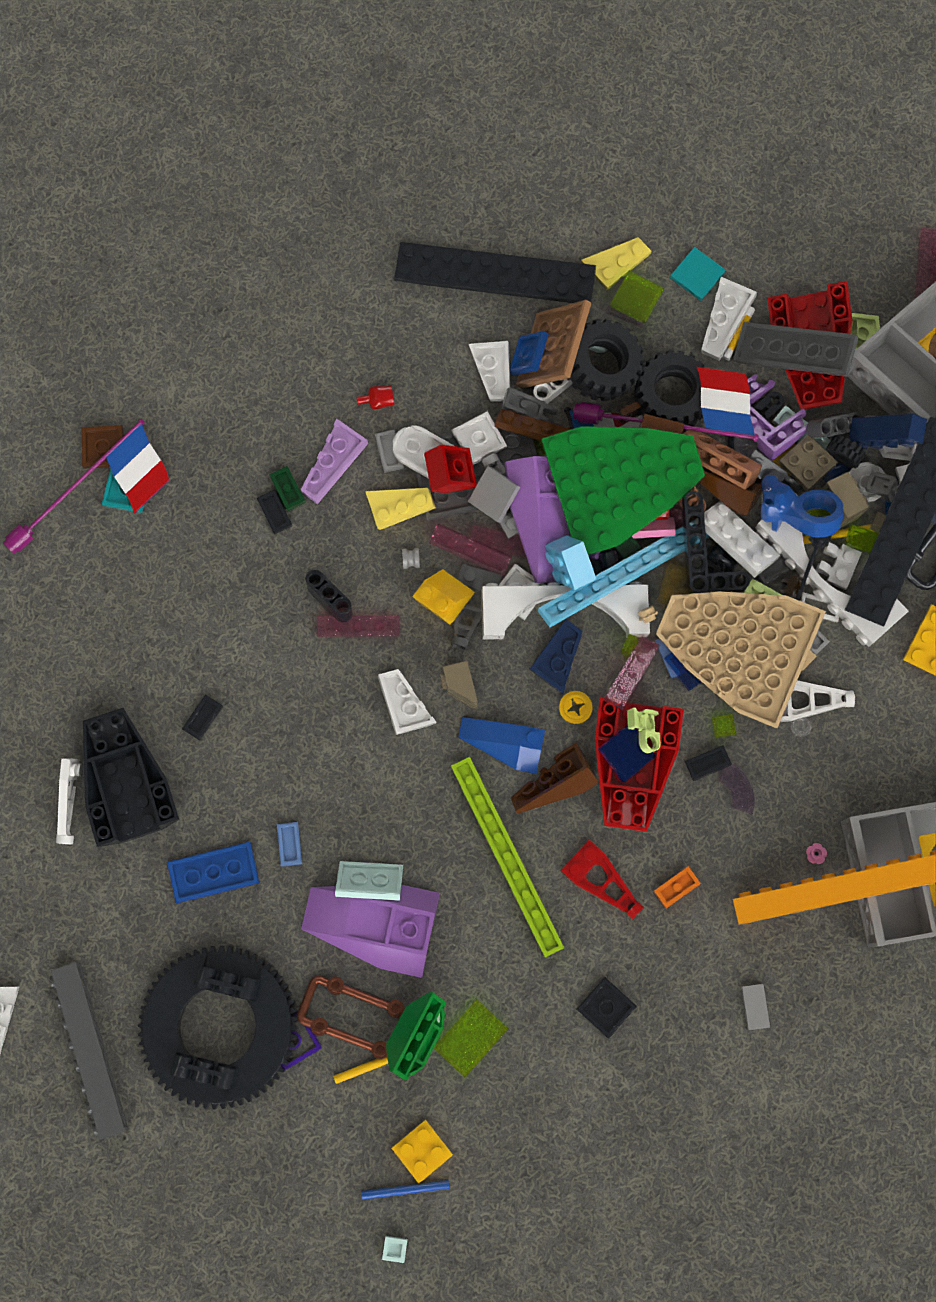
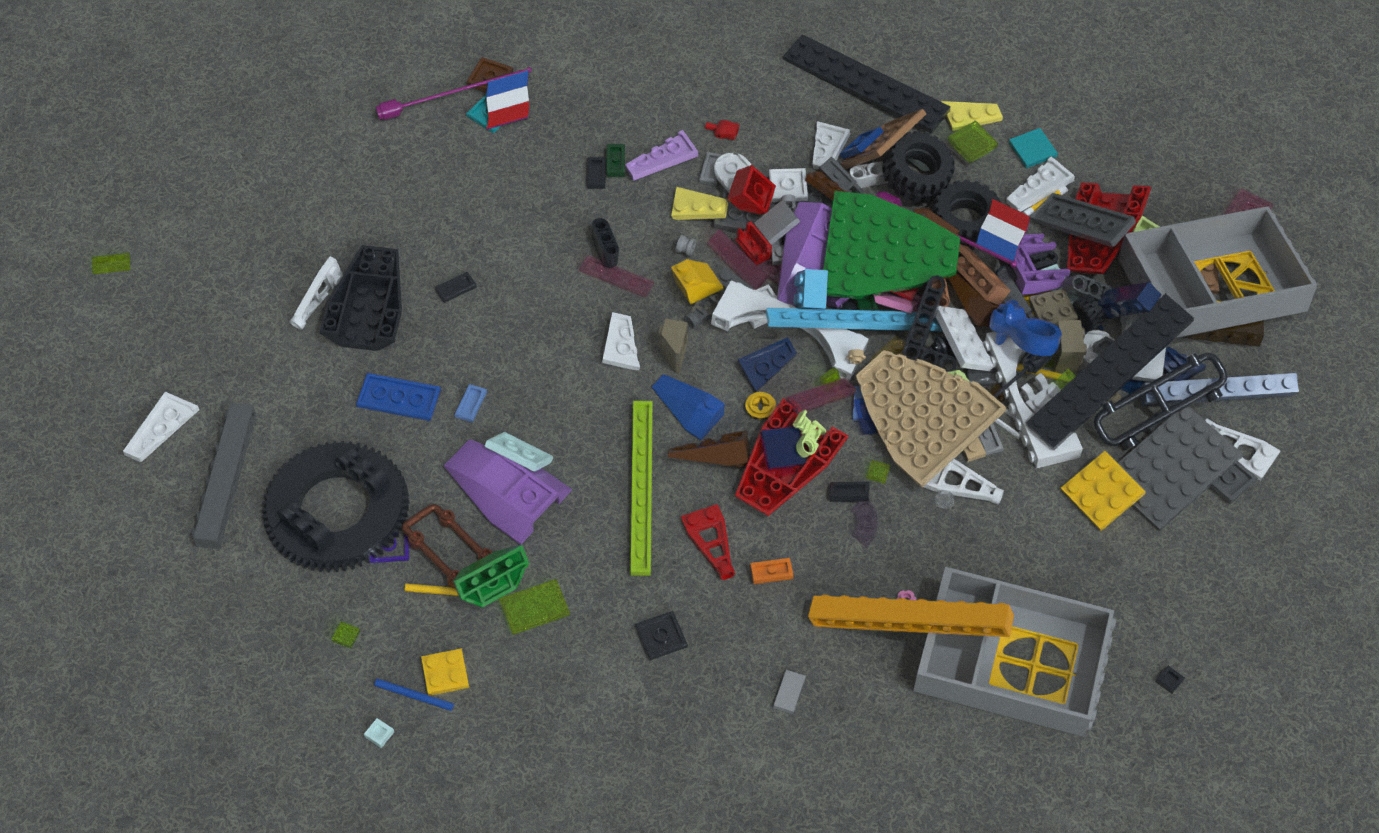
camera: 25 degrees right, 20 degrees down
(306, 1162) = (346, 635): none -> clear neon green plate
(480, 526) = (754, 244): none -> red hinge

